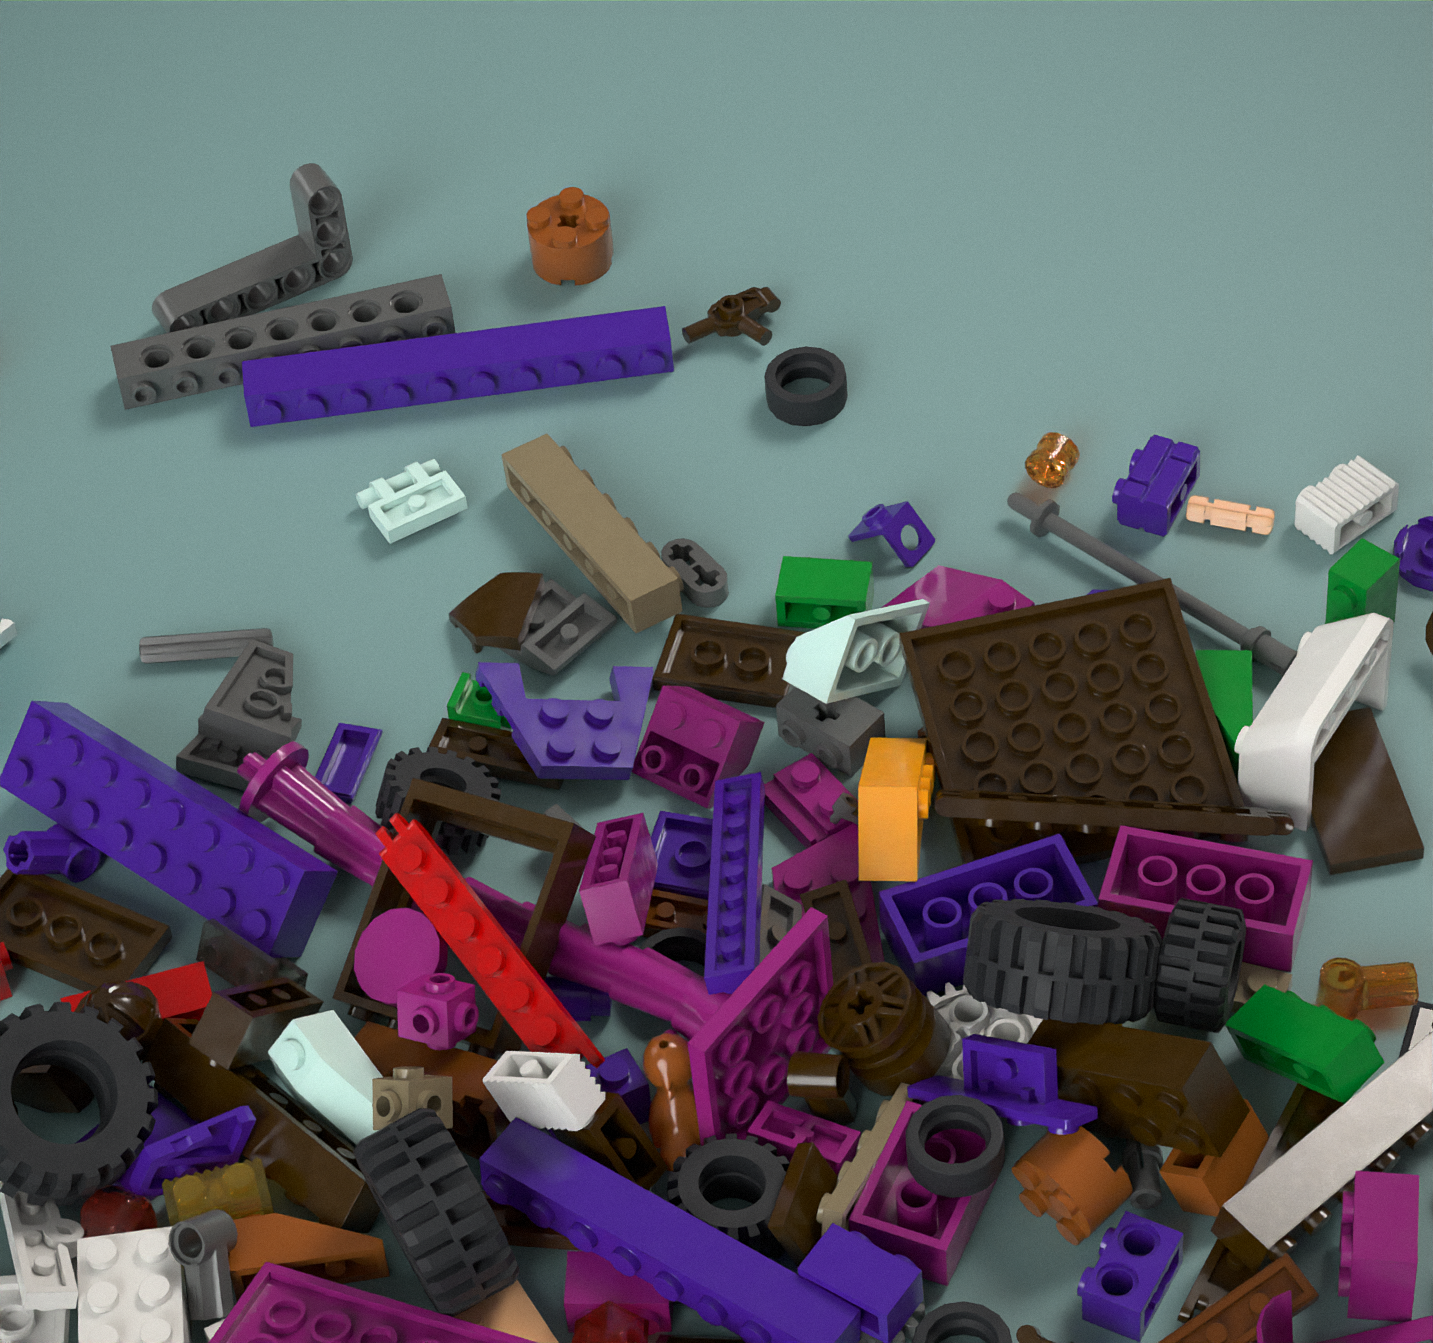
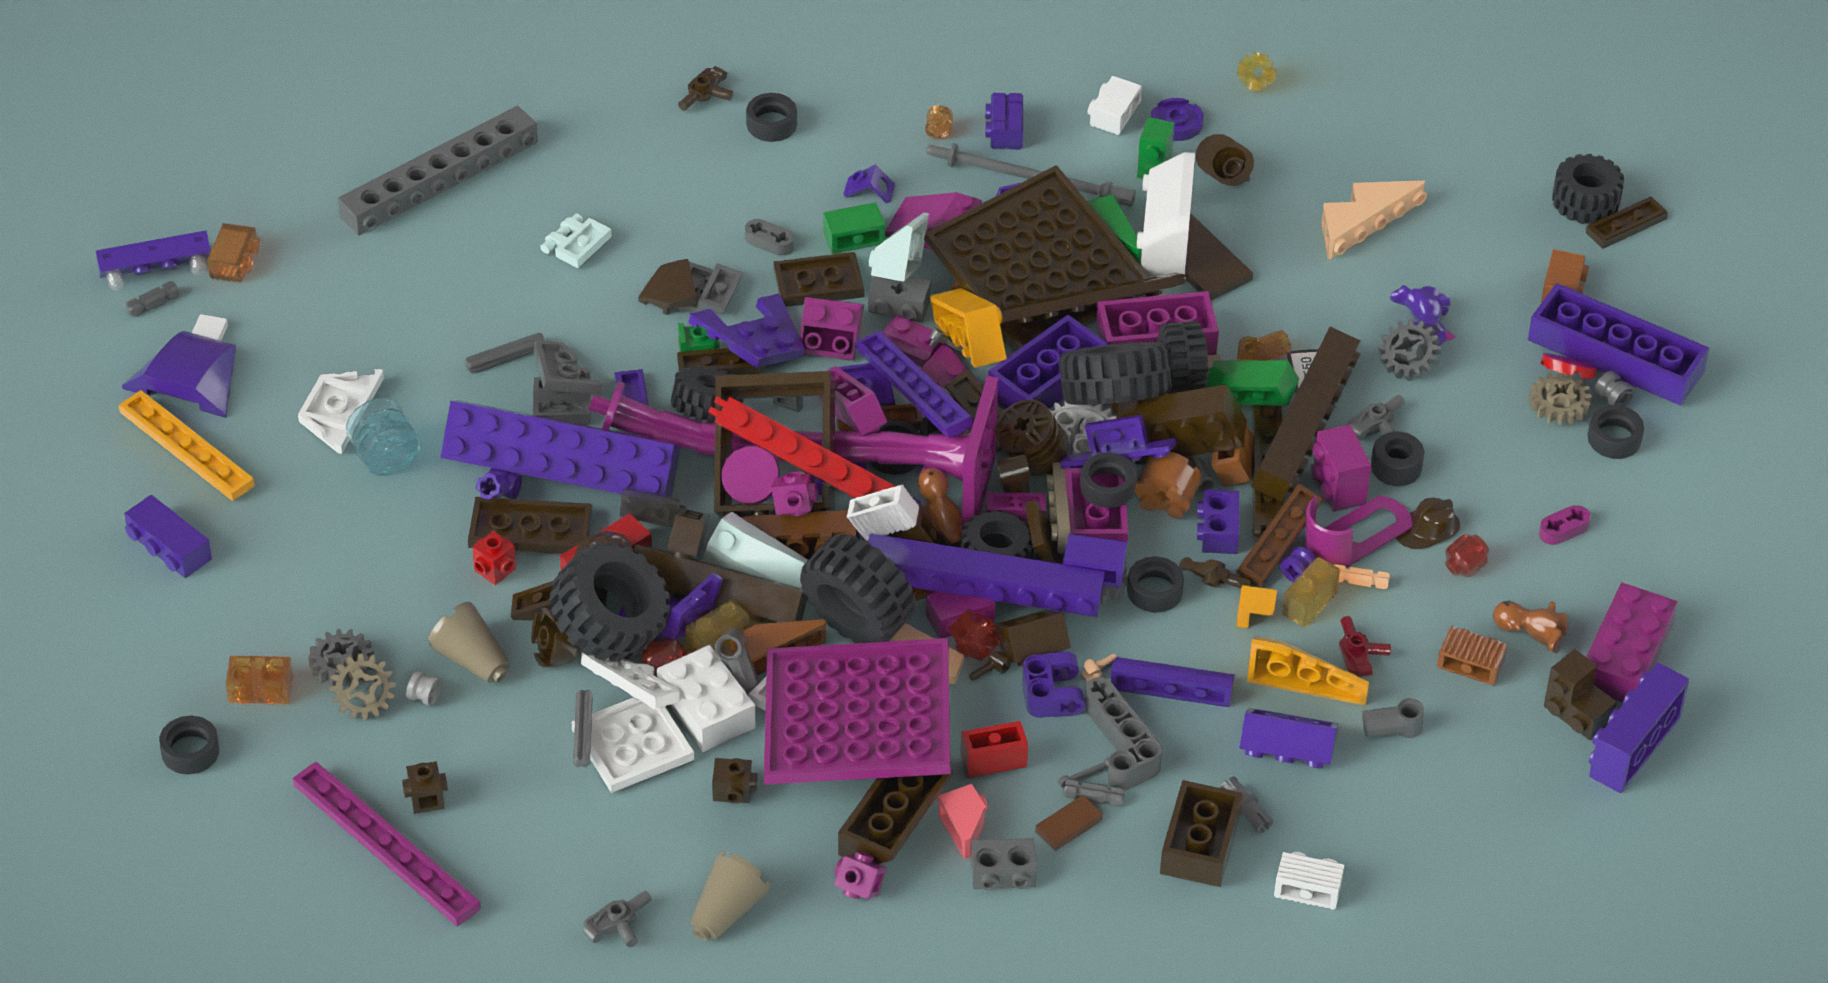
camera: 30 degrees left, 0 degrees up
(272, 274) = (408, 129): dark grey beam -> none
(409, 1091) = (805, 541): dark tan brick -> none
(457, 366) = (555, 157): dark purple brick -> none
(570, 238) = (579, 66): dark orange brick -> none
(593, 533) = (700, 229): dark tan brick -> none
(1230, 515) = (1053, 127): light nougat axle -> none

